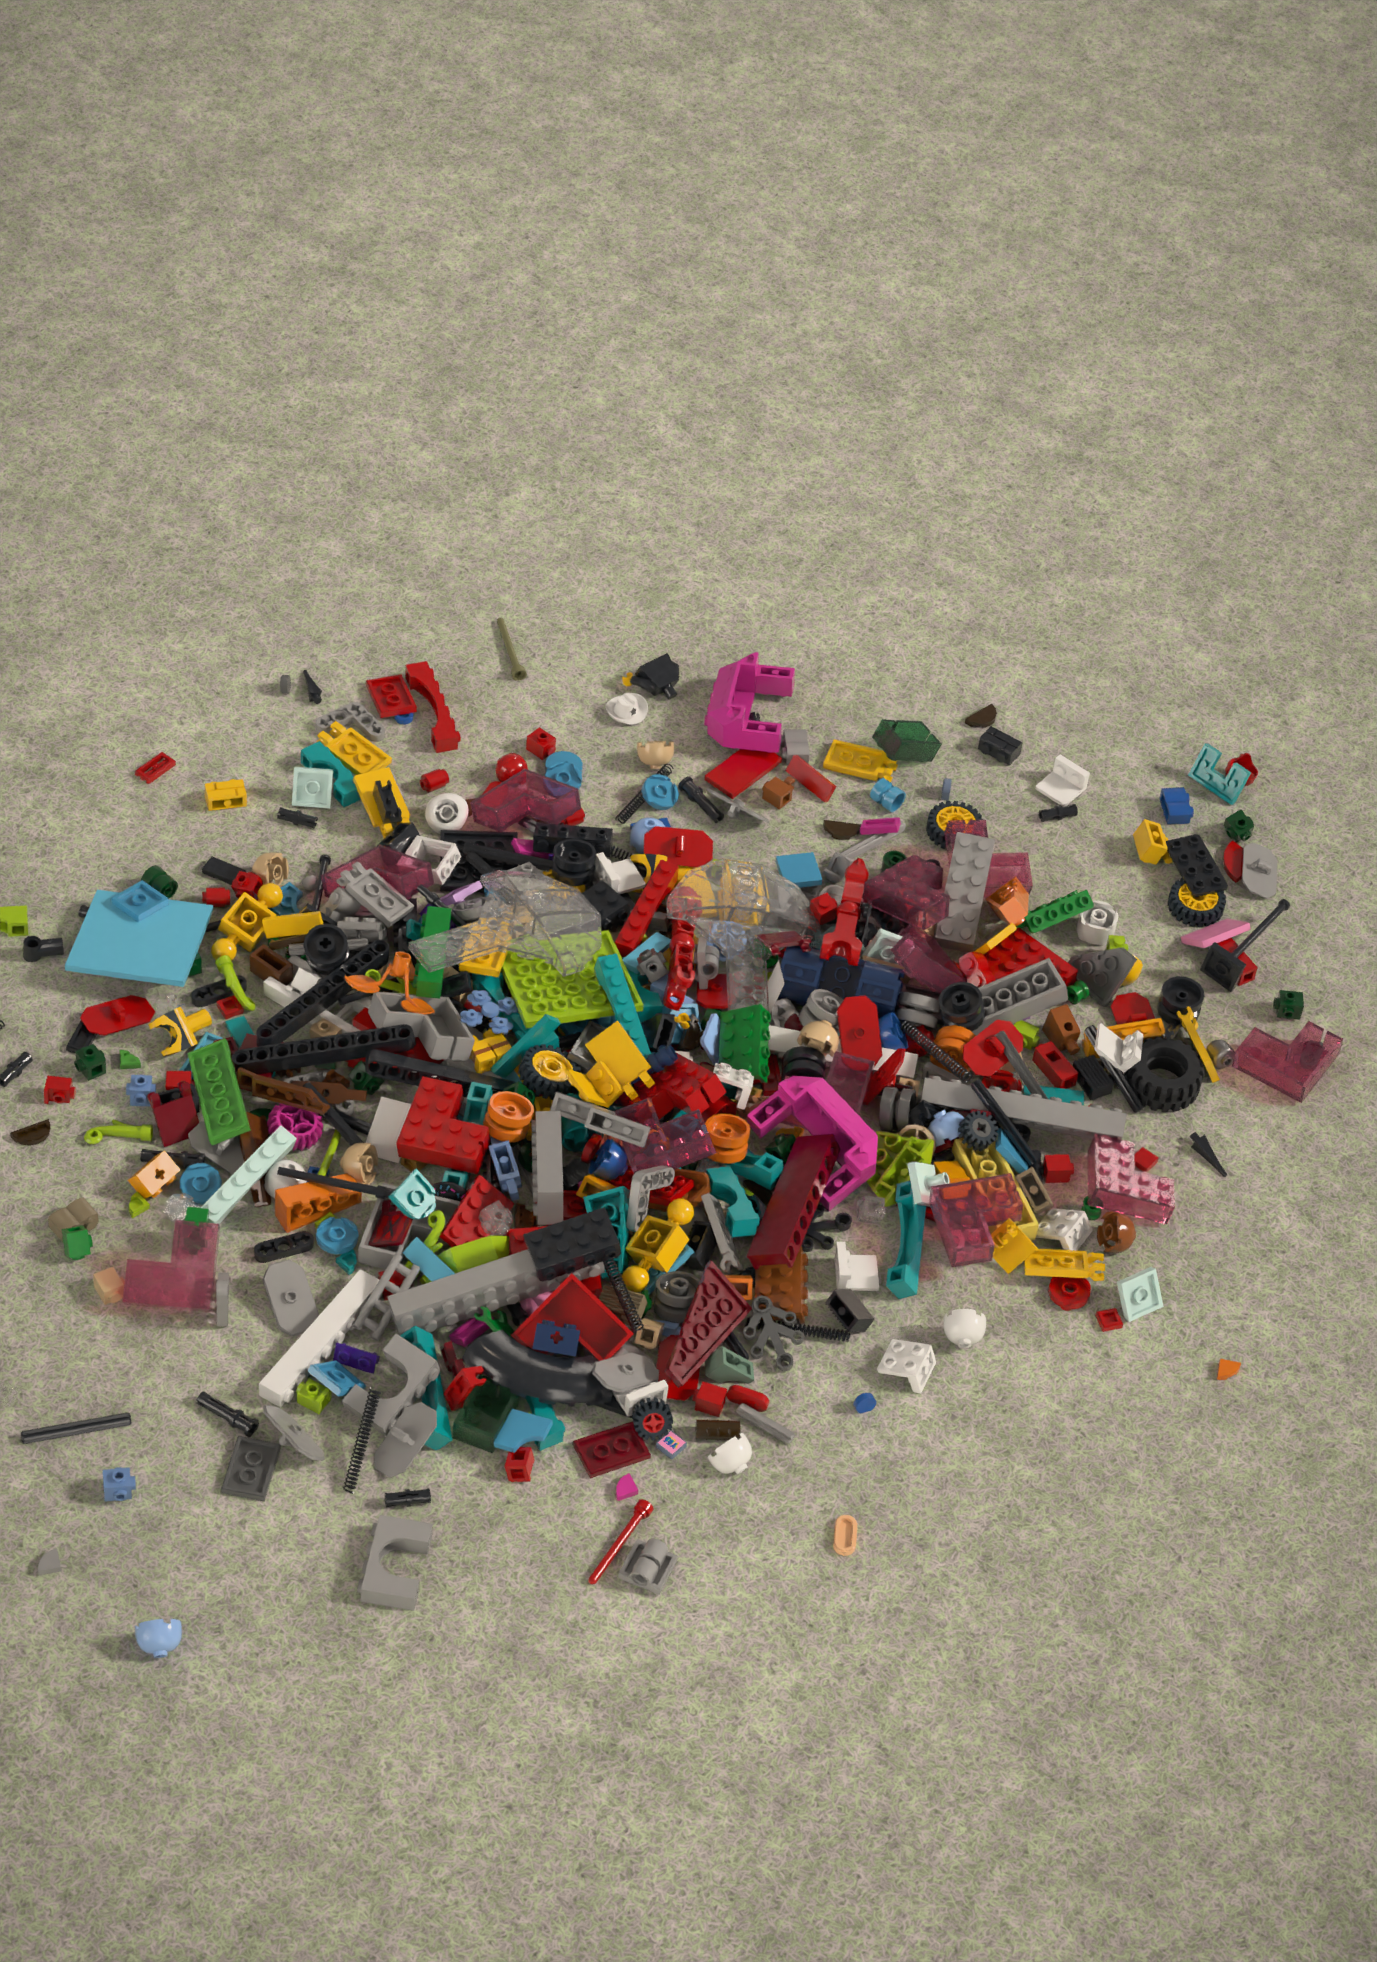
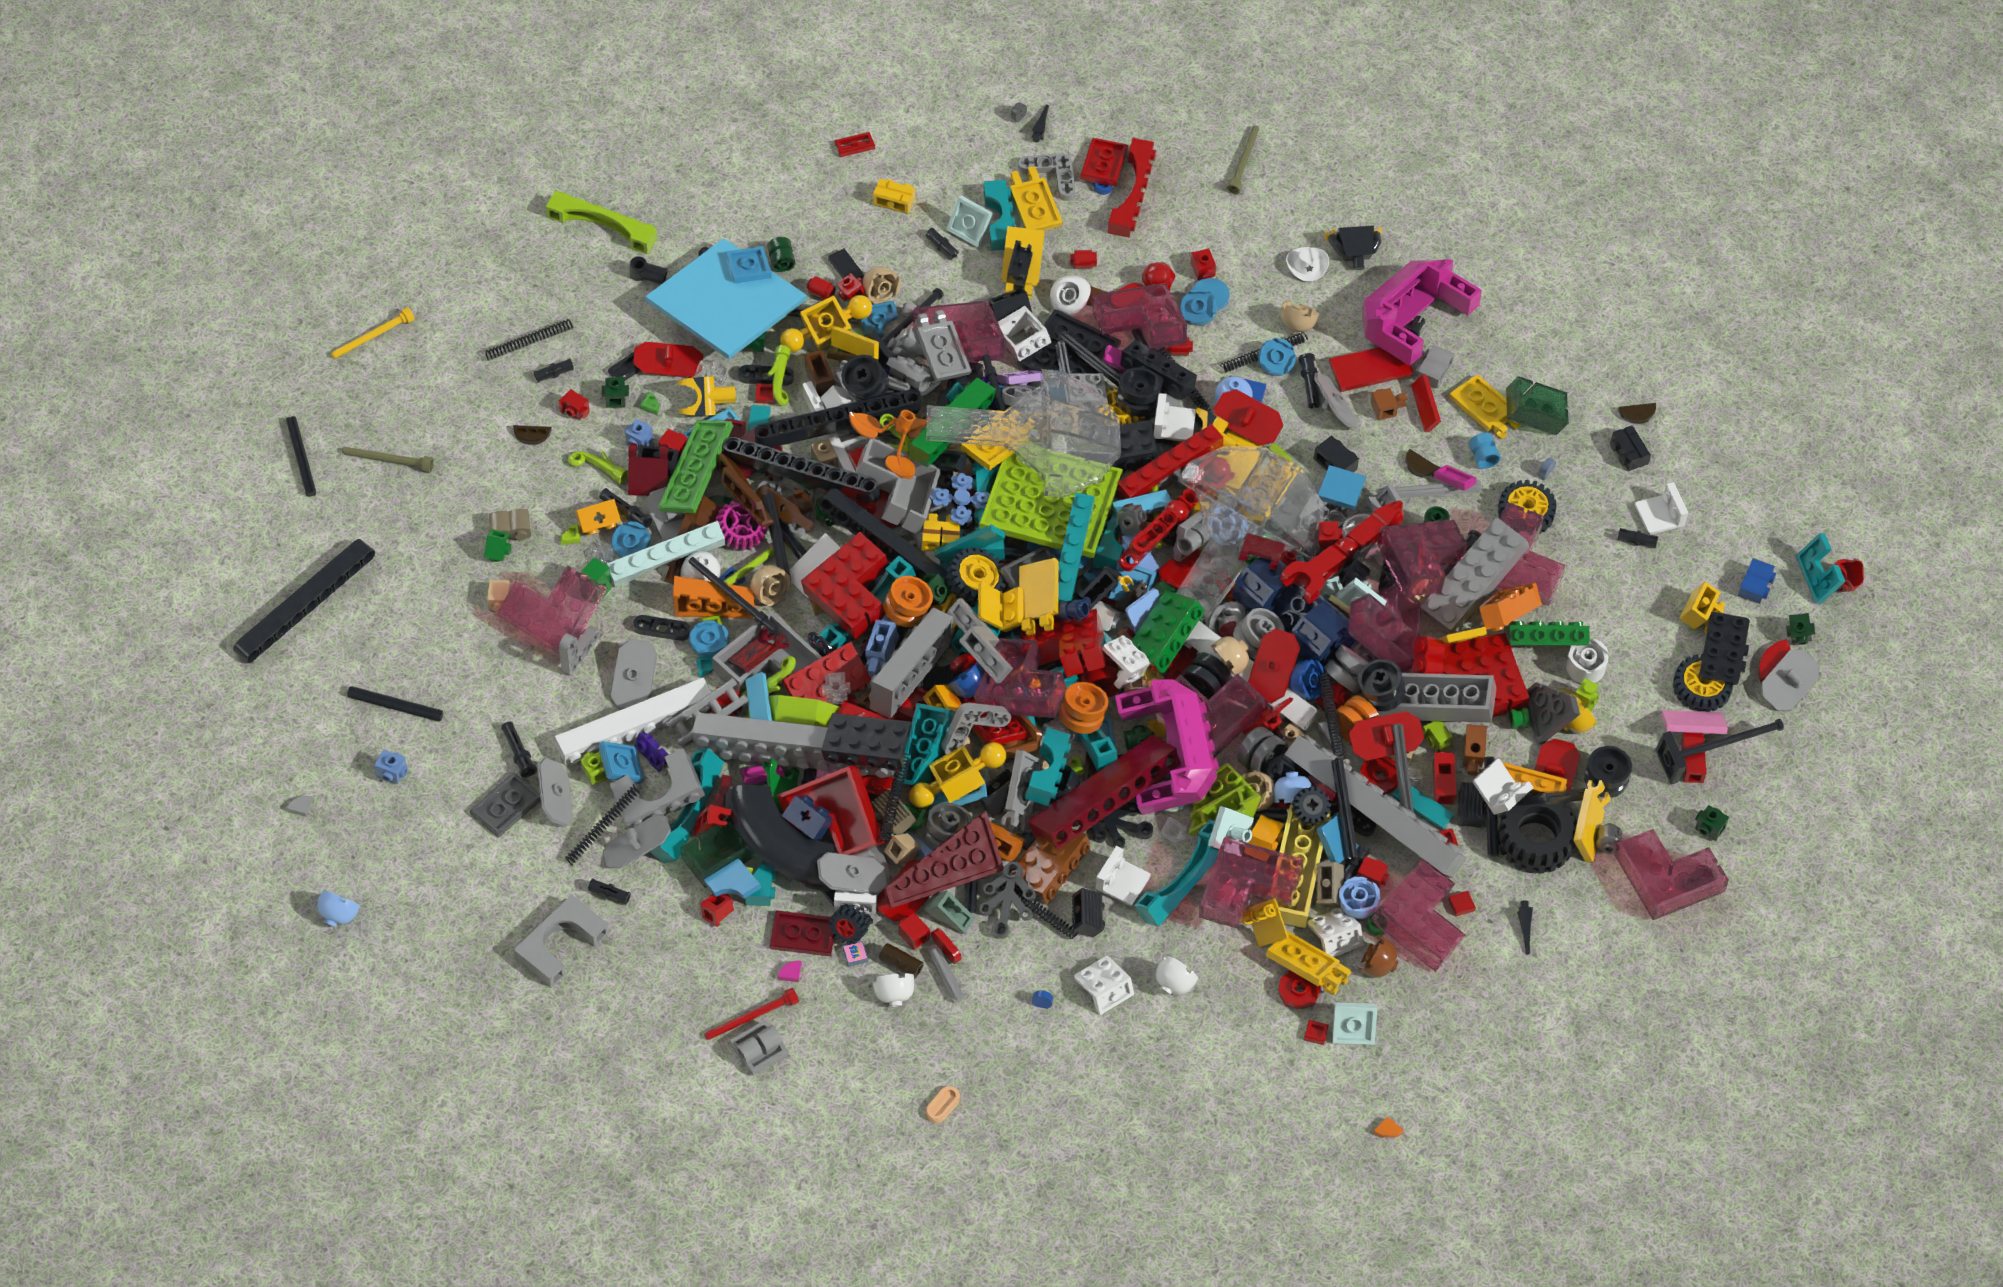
camera: 35 degrees right, 10 degrees up
(414, 1196) = (781, 635): tile -> none
(770, 847) = (1334, 453): none -> black brick
(1066, 1190) = (1359, 897): none -> light blue cylinder

